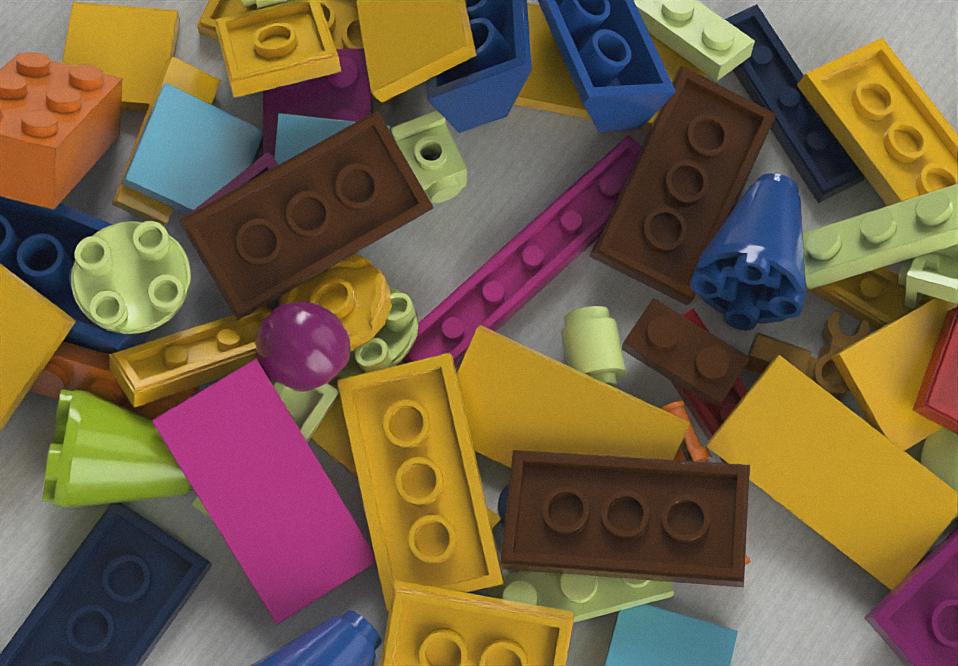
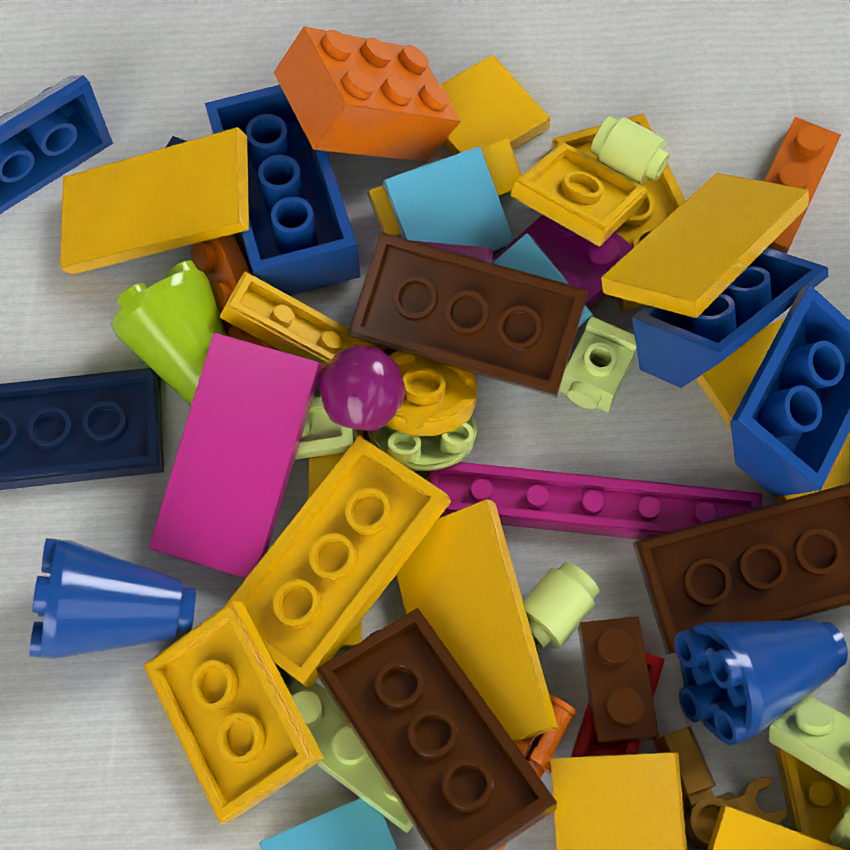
camera: 55 degrees right, 5 degrees down
(130, 277) = (308, 234): yellowish green dish -> none

